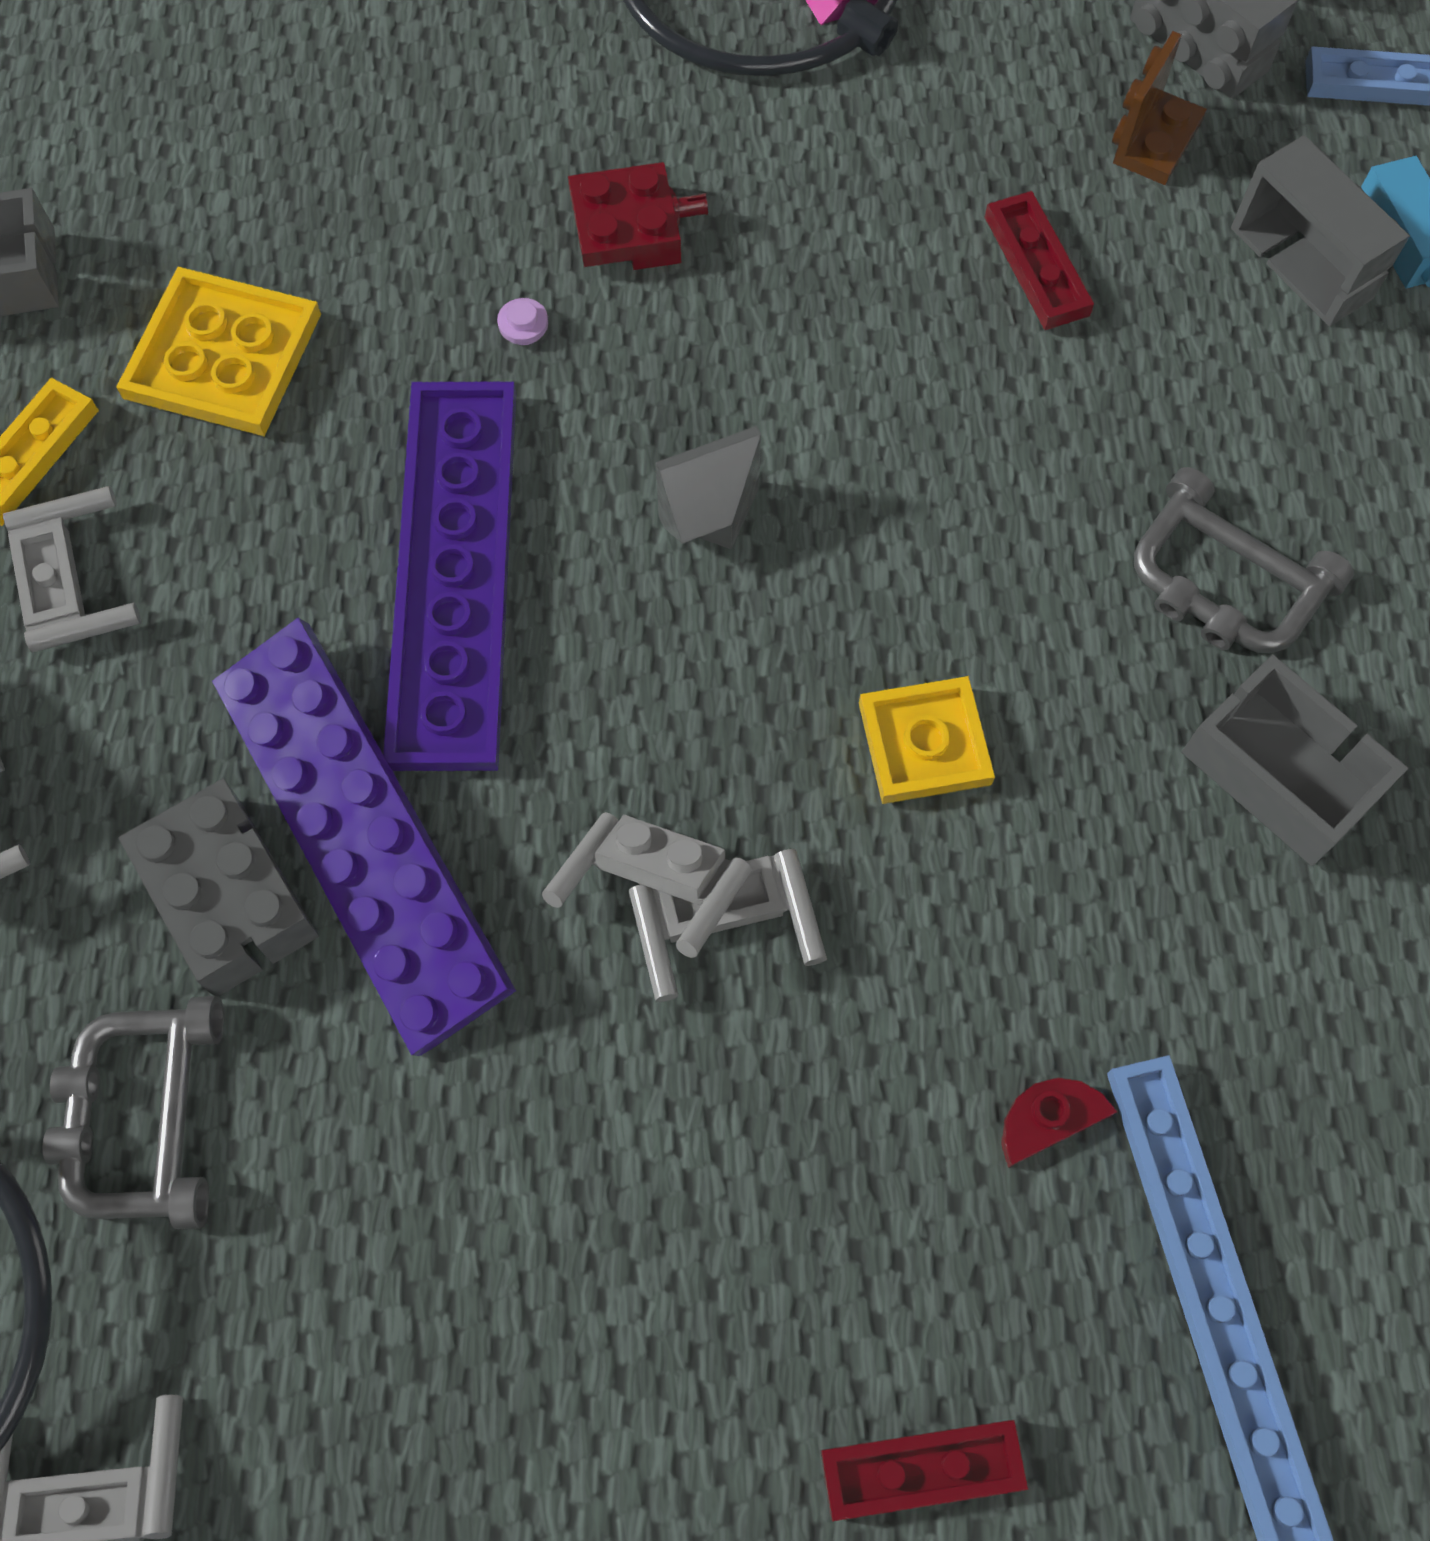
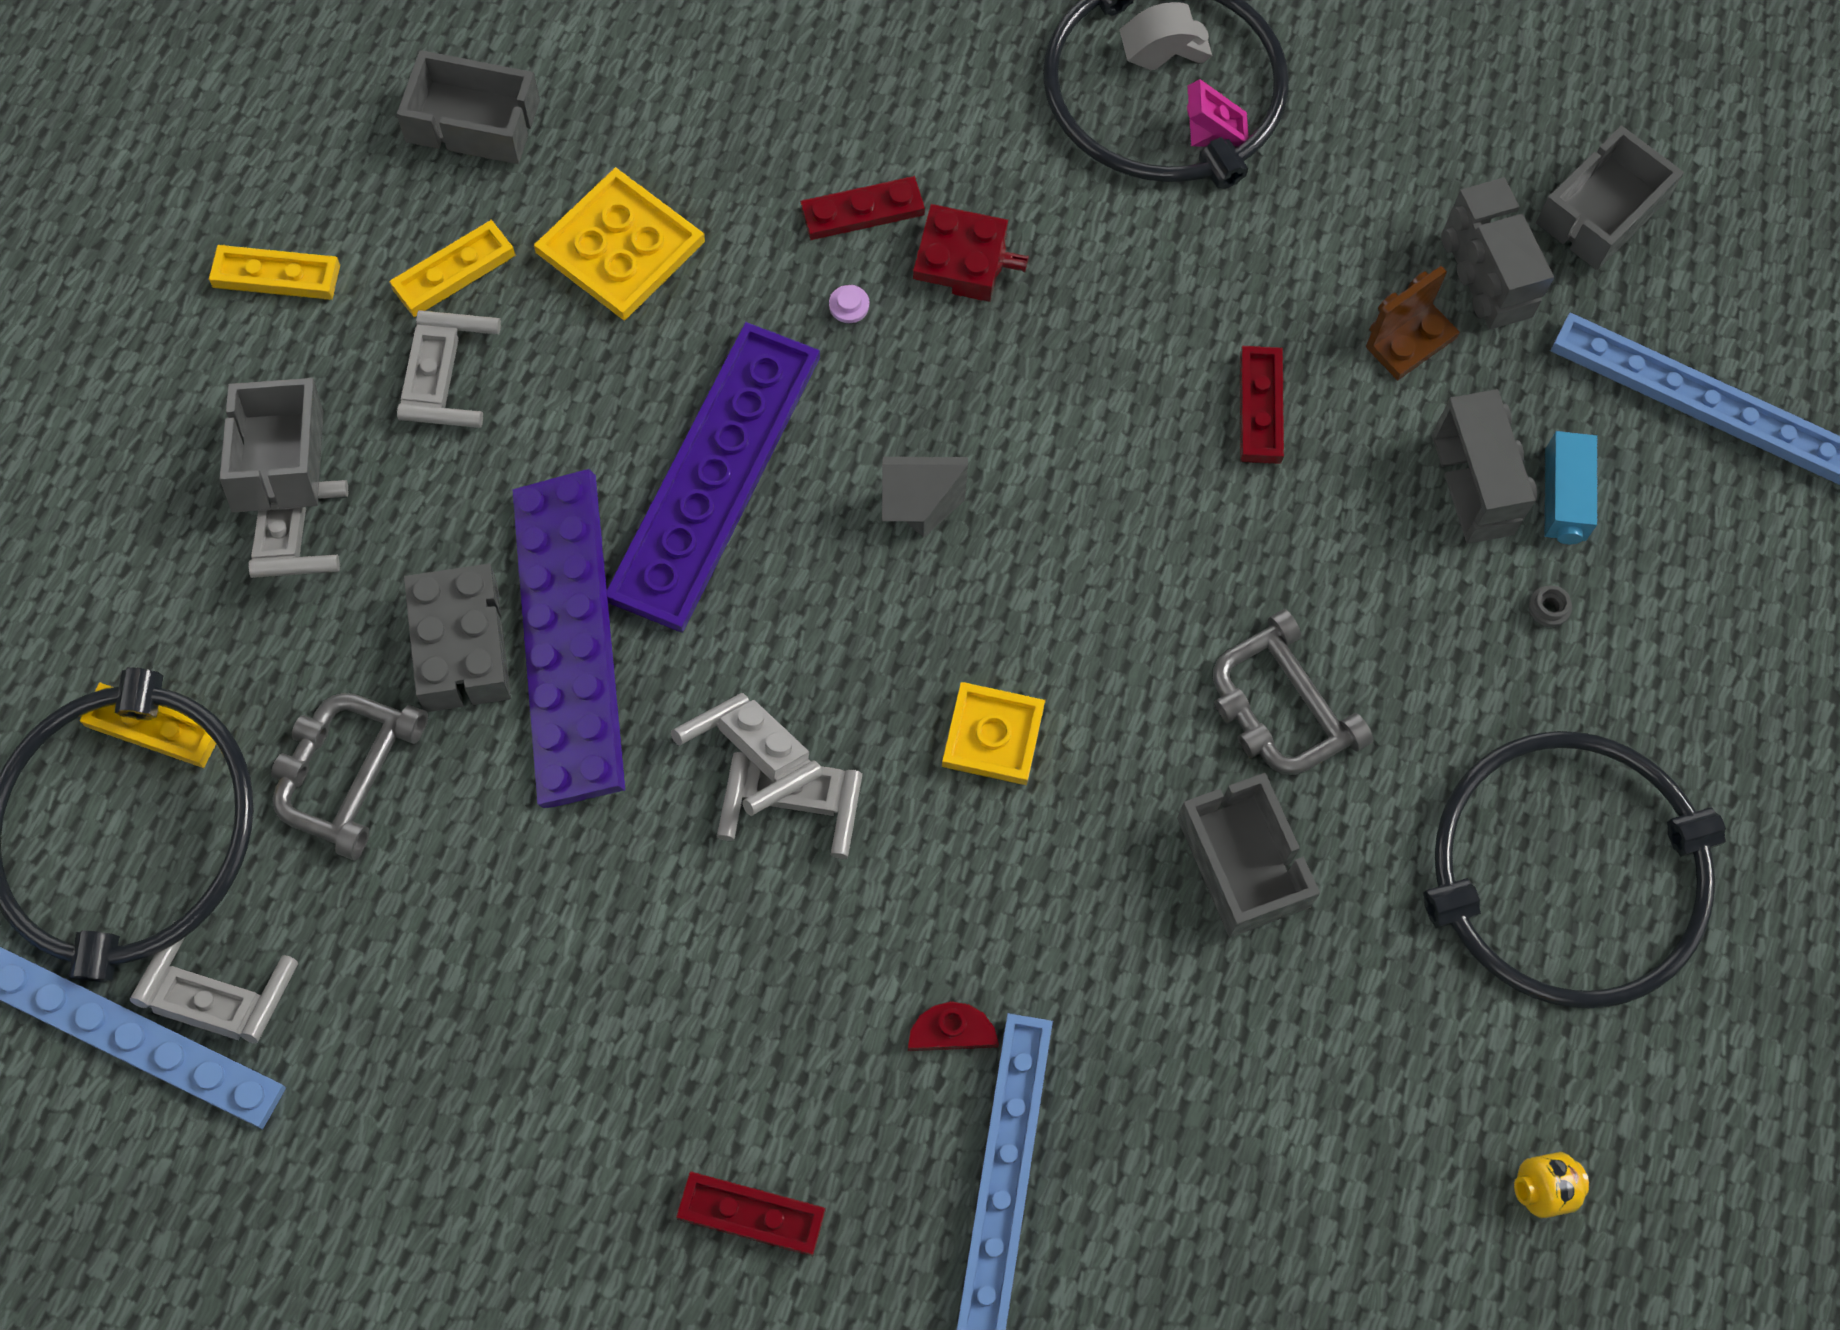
camera: 20 degrees right, 0 degrees up
(488, 213) = (862, 208): none -> dark red plate

